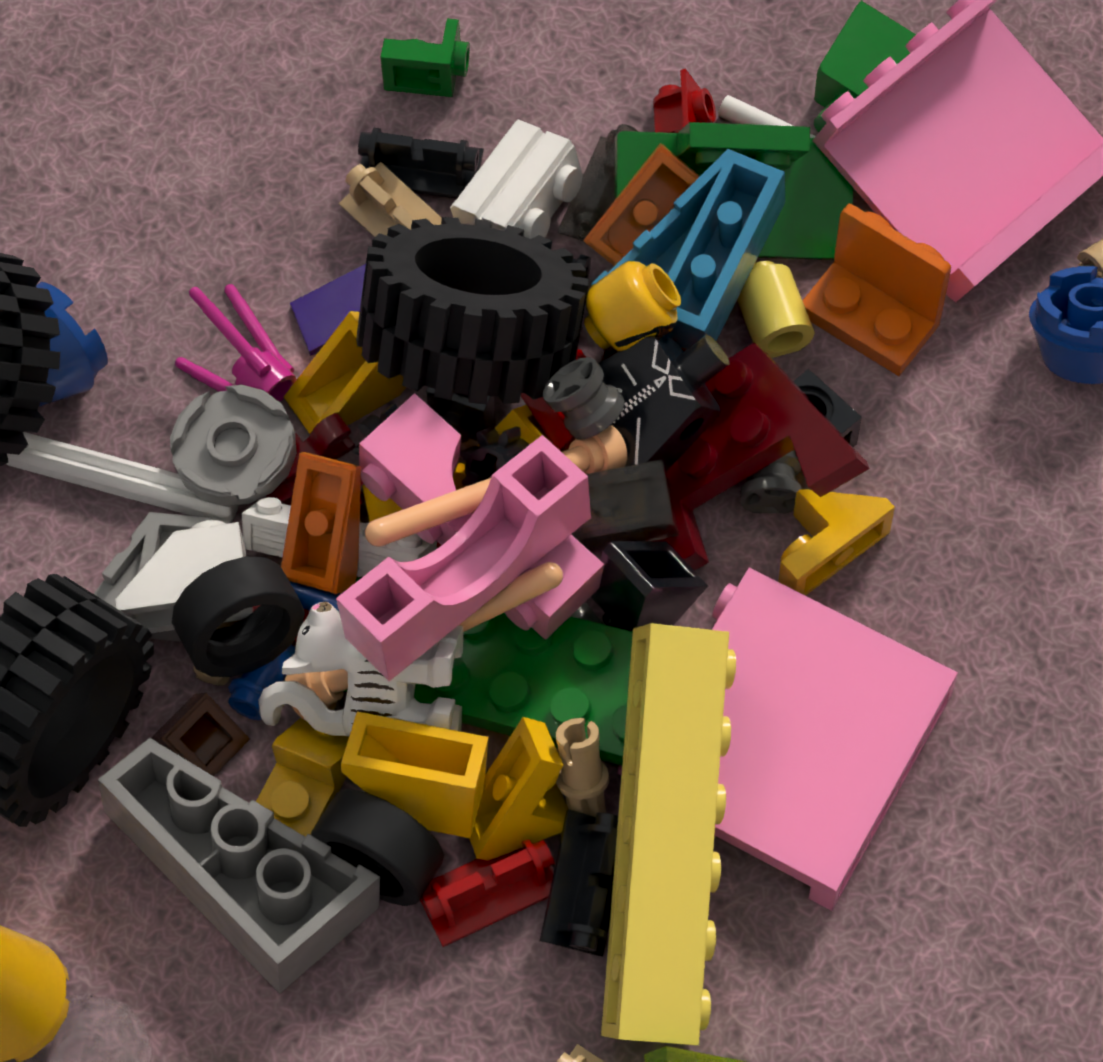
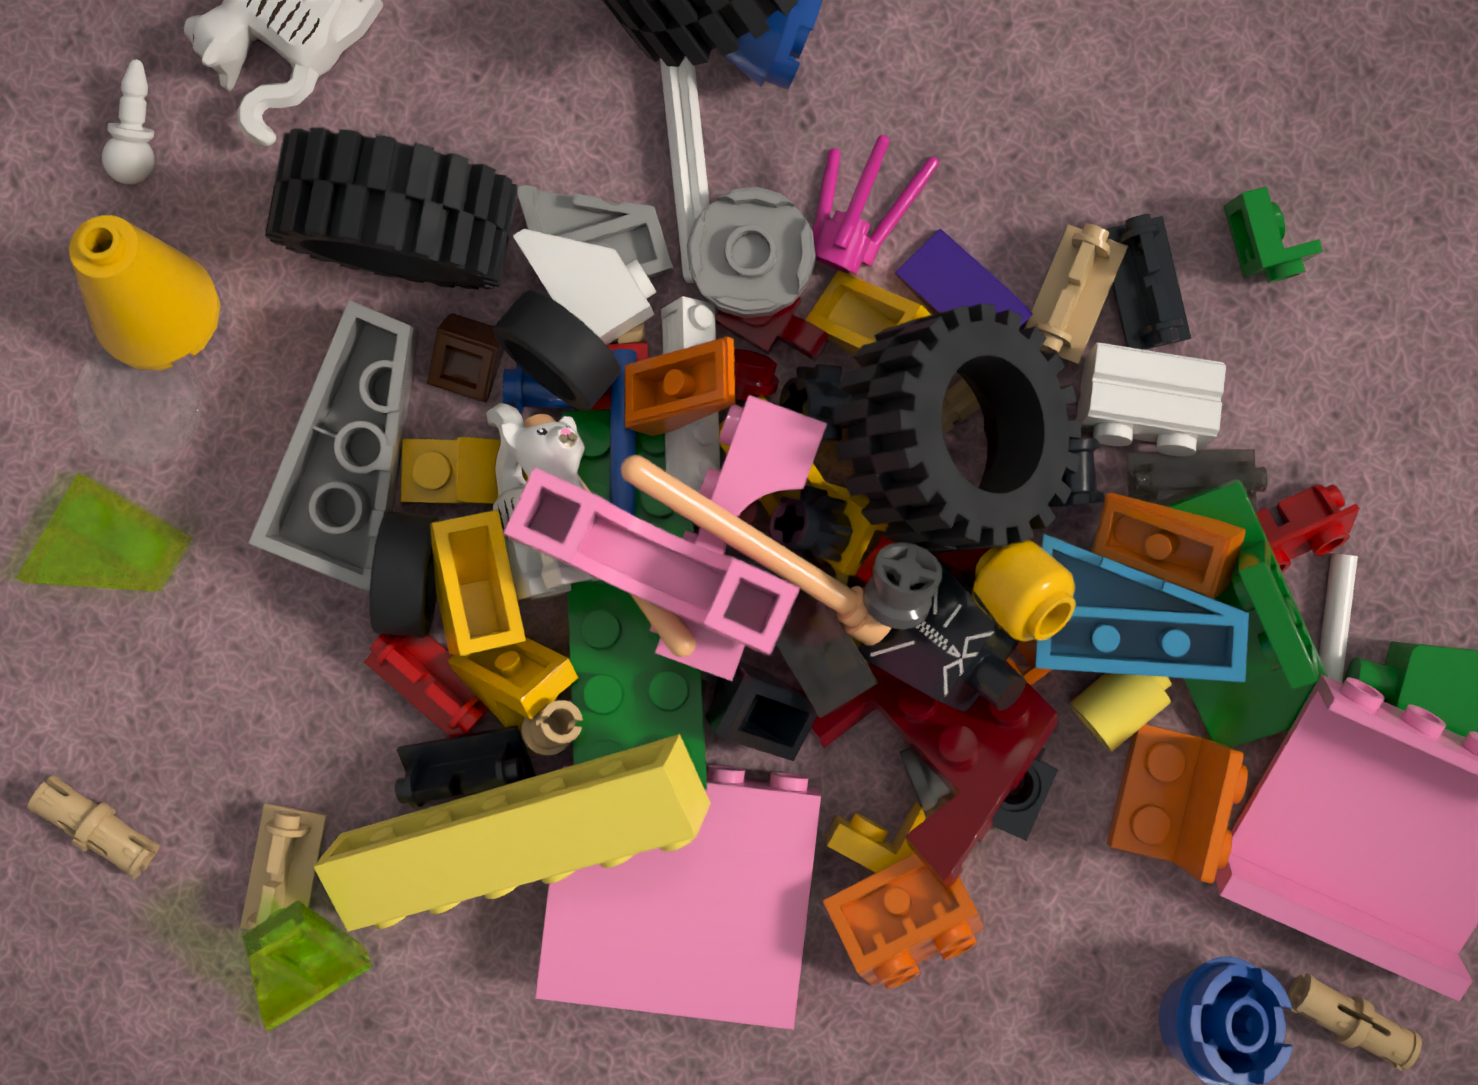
camera: 65 degrees right, 25 degrees up
(893, 534) = (902, 920): none -> orange bracket

